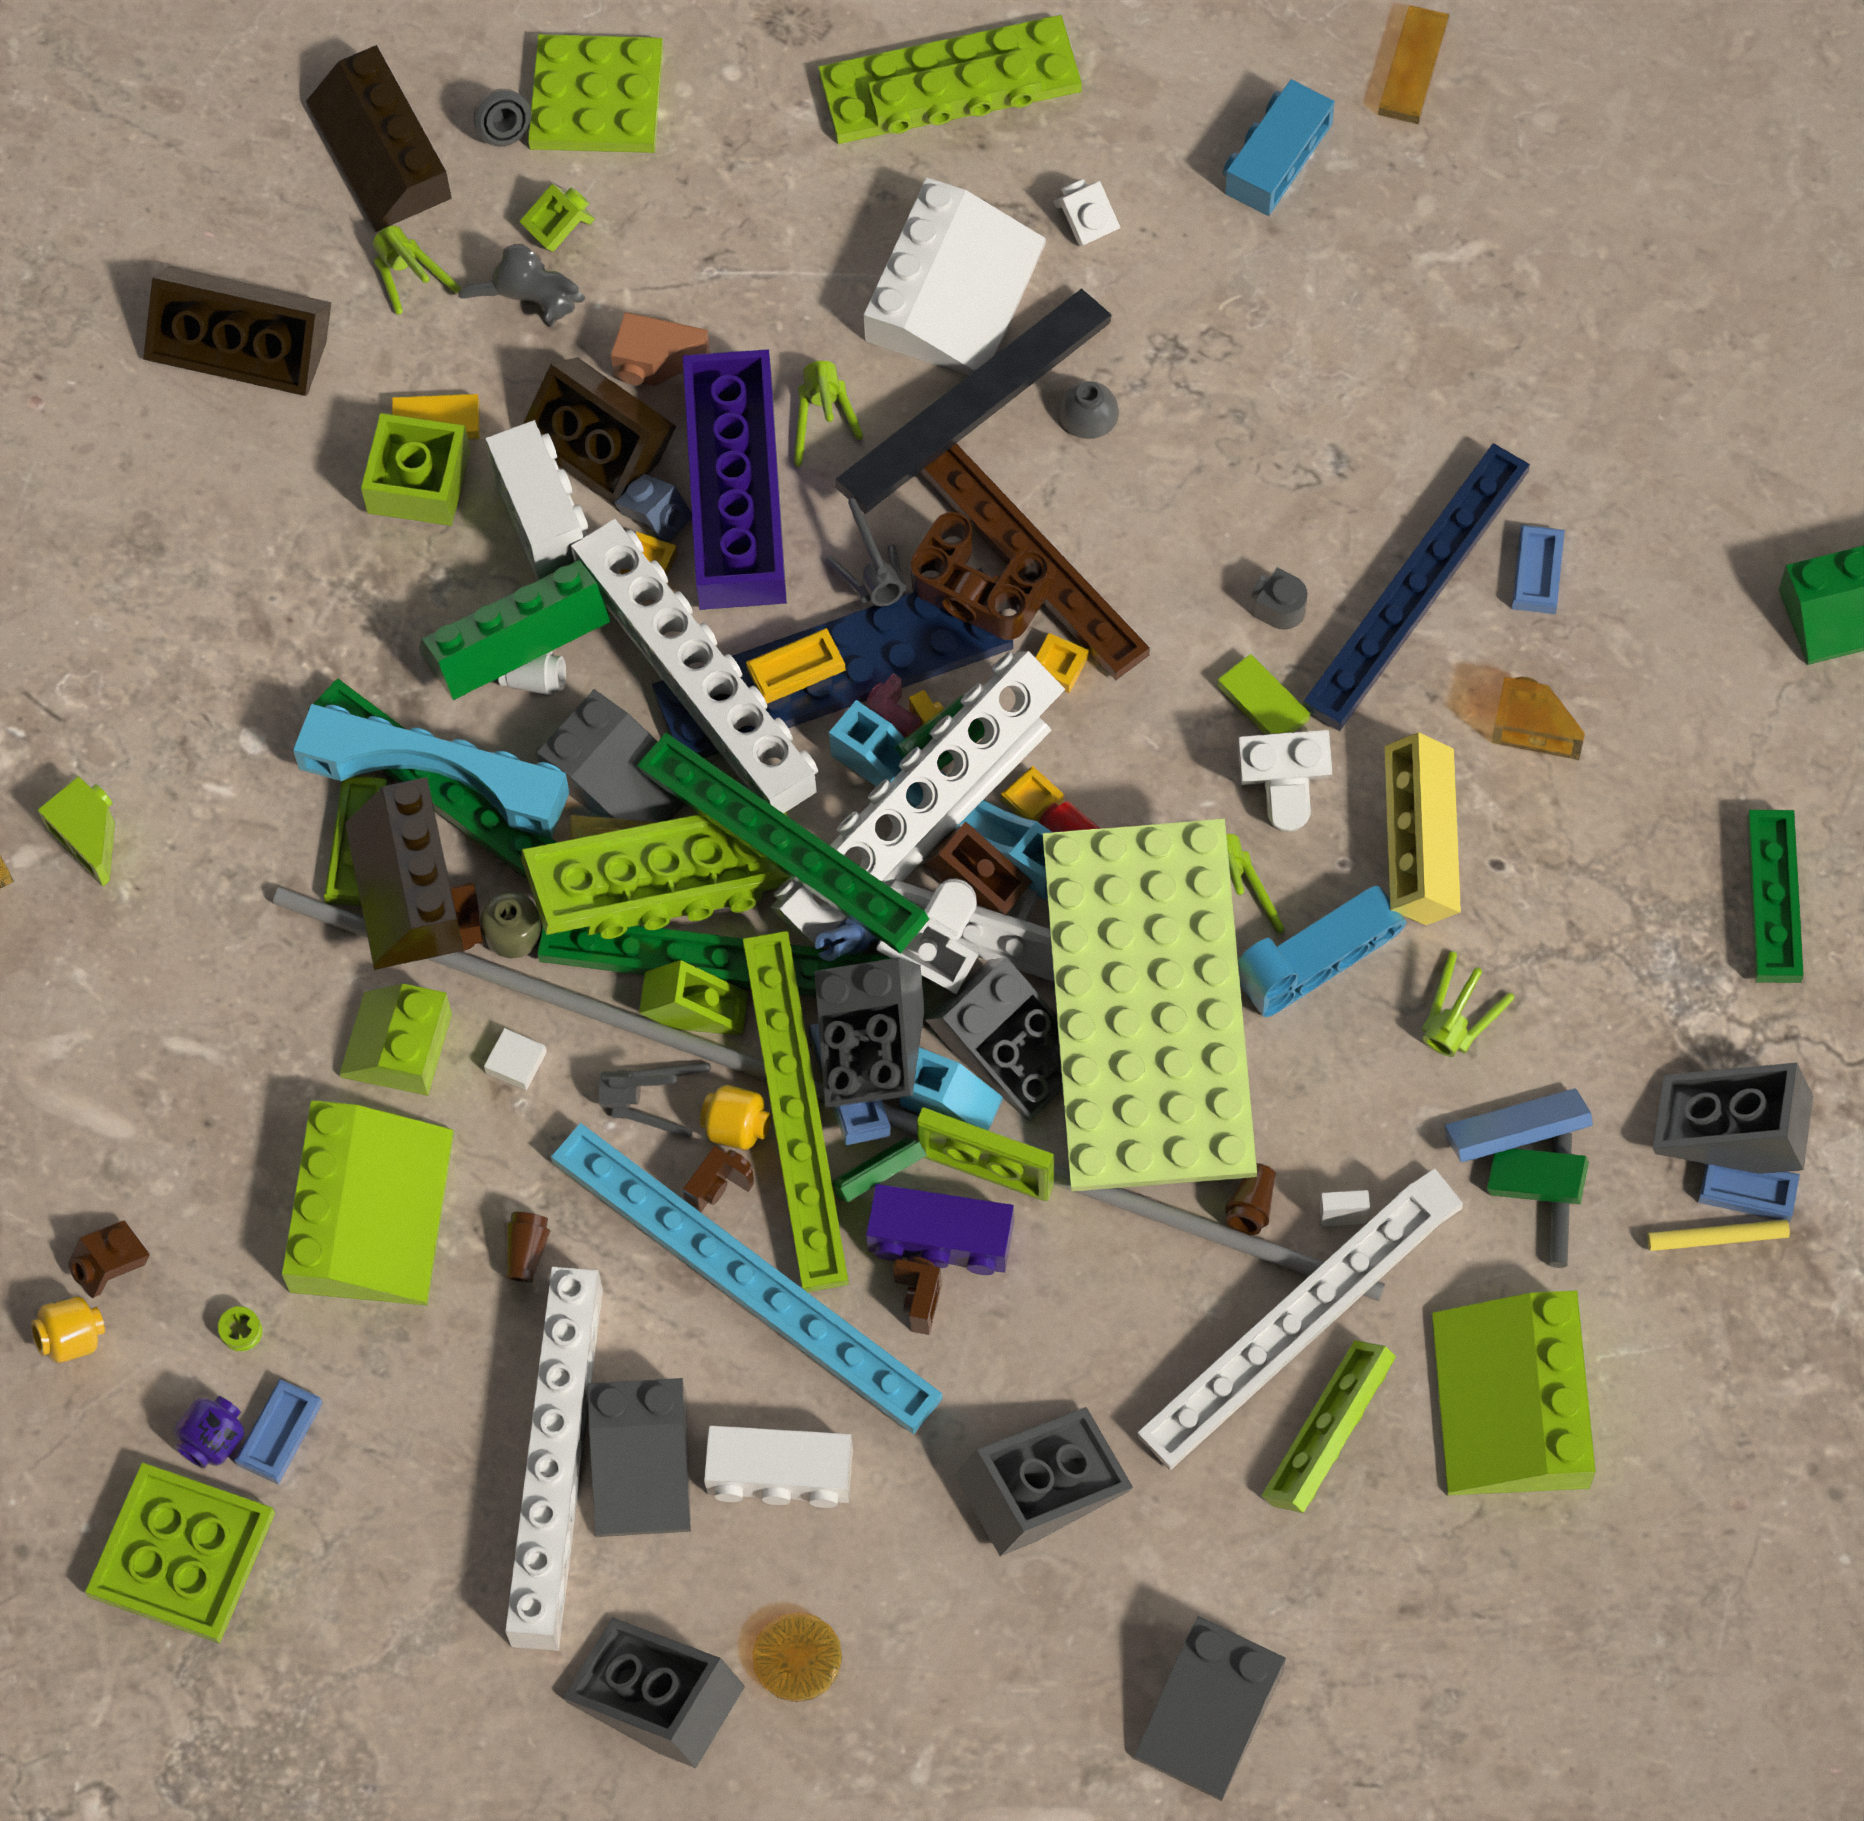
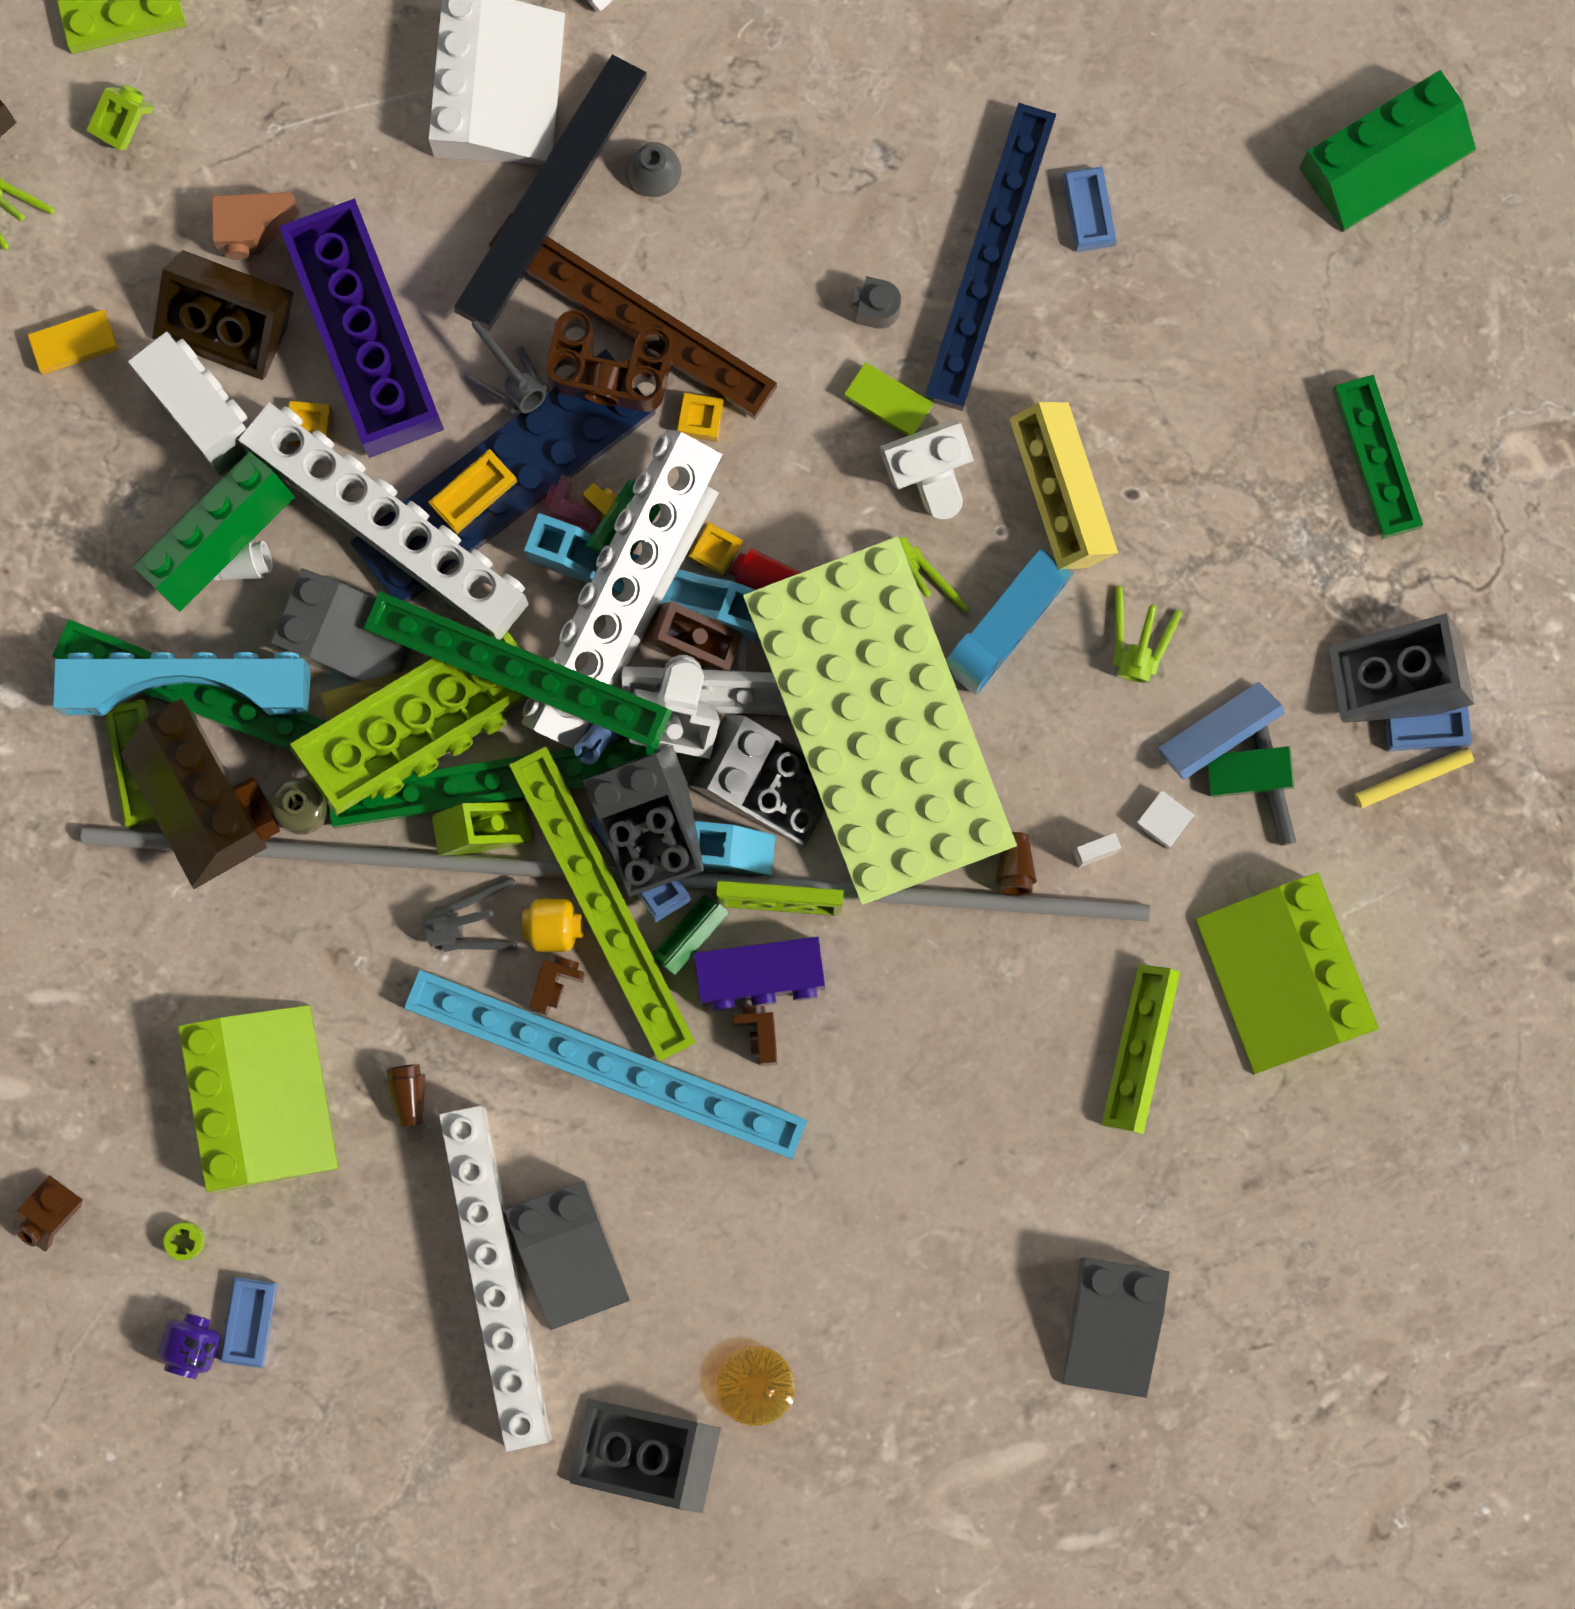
camera: 20 degrees left, 15 degrees up
(67, 1329) = (34, 1291): yellow head -> none
(180, 1552) = (200, 1458): lime plate -> none
(398, 1038) = (233, 938): lime slope -> none
(415, 469) = (72, 400): lime brick -> none
(502, 117) = (37, 32): dark grey brick -> none
(515, 1059) = (342, 924): white tile -> none
(524, 278) = (110, 186): dark grey animal -> none
(655, 505) = (298, 372): sand blue bracket -> none
(778, 1465) = (688, 1226): white brick -> none
(822, 389) = (412, 216): lime plant -> none
(1041, 1480) = (915, 1170): dark grey slope -> none
(1290, 1326) = (1084, 971): white plate -> none
(1535, 720) = (1128, 353): clear yellow slope -> none

